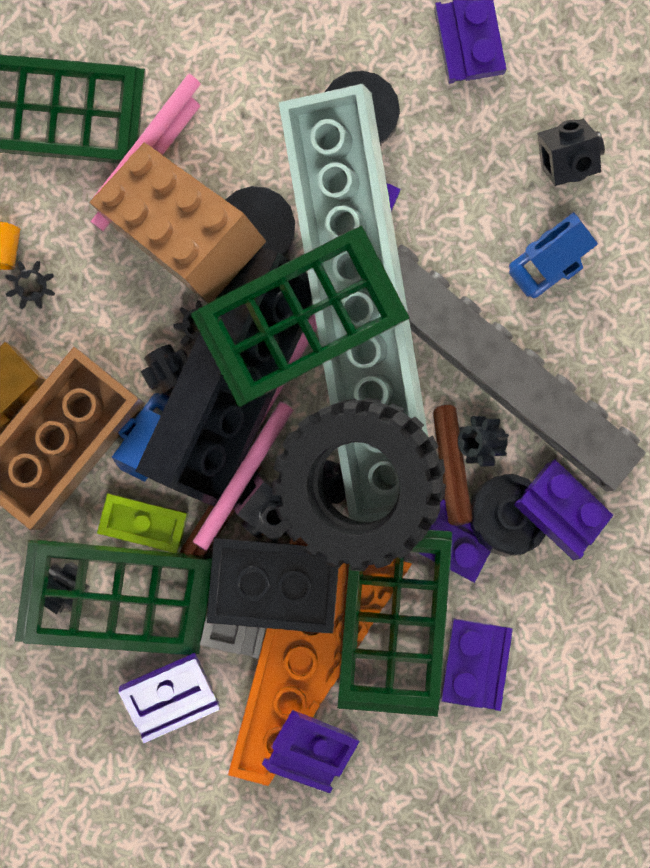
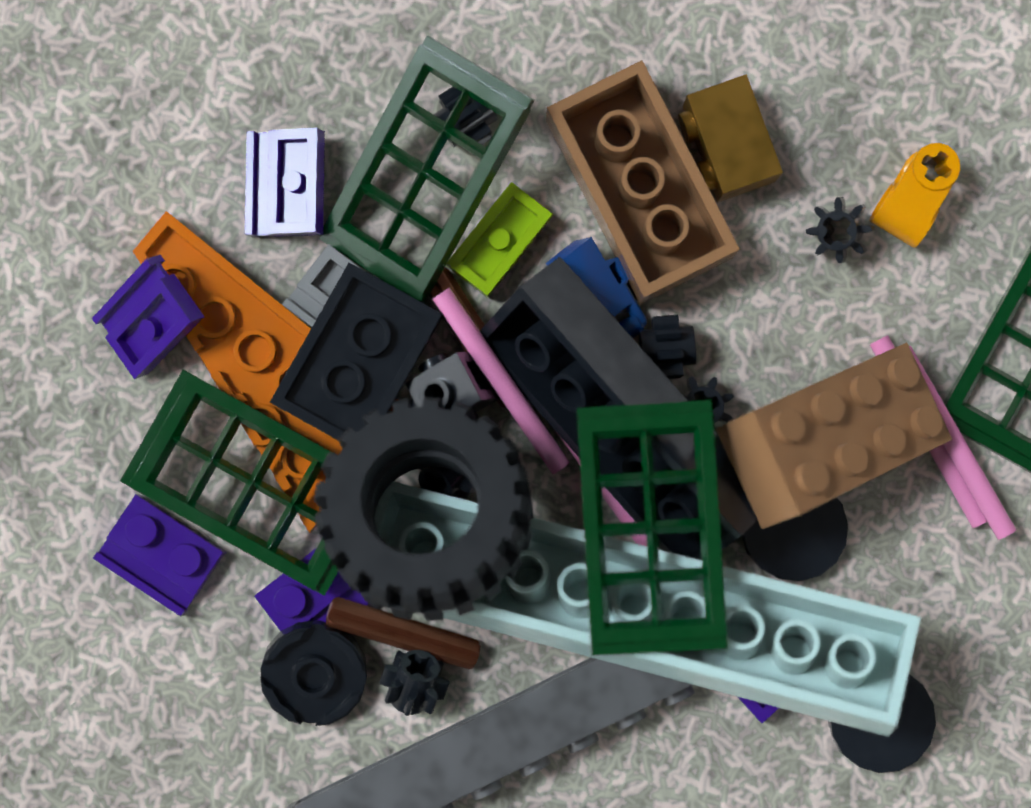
camera: 110 degrees right, 0 degrees up
(564, 510) = (290, 741): dark purple plate -> none

